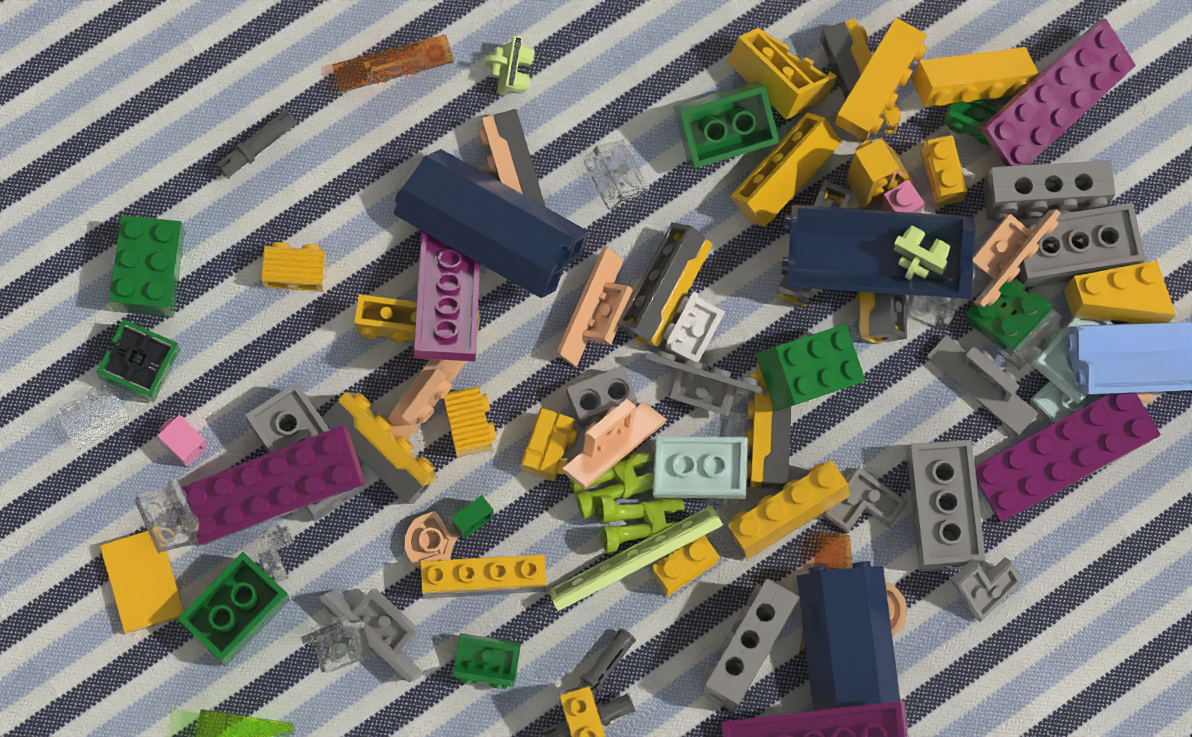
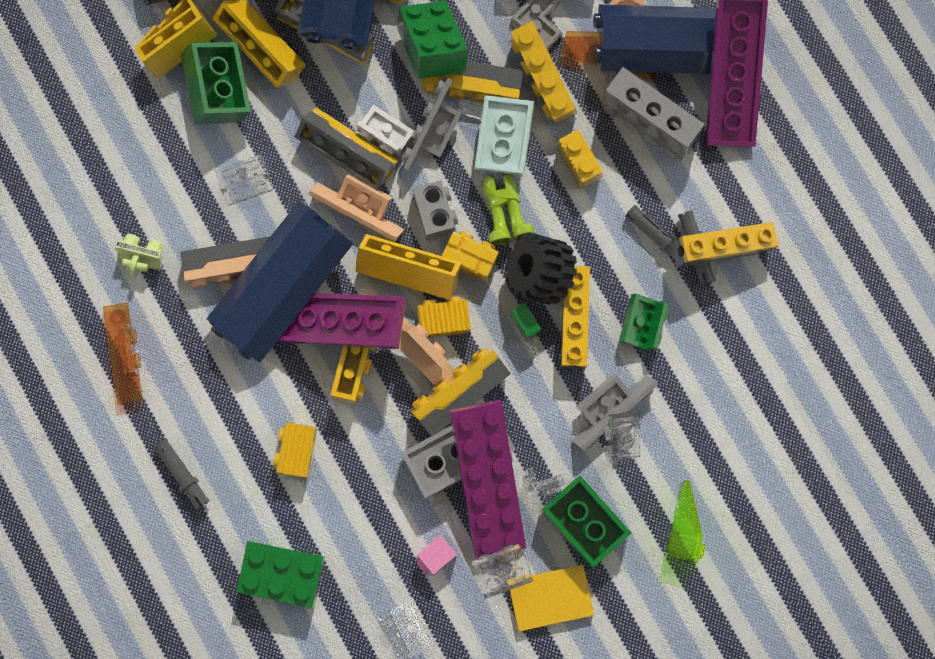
camera: 85 degrees left, 5 degrees up
(138, 361) = (363, 587): piece -> none
(428, 540) = (539, 360): light nougat animal -> none
(525, 370) = (407, 266): none -> yellow brick
(535, 523) = (540, 269): none -> black wheel
(612, 440) = (477, 203): light nougat bracket -> none
(635, 558) = (572, 195): yellowish green tile -> none
(652, 513) = (544, 179): lime piece -> none

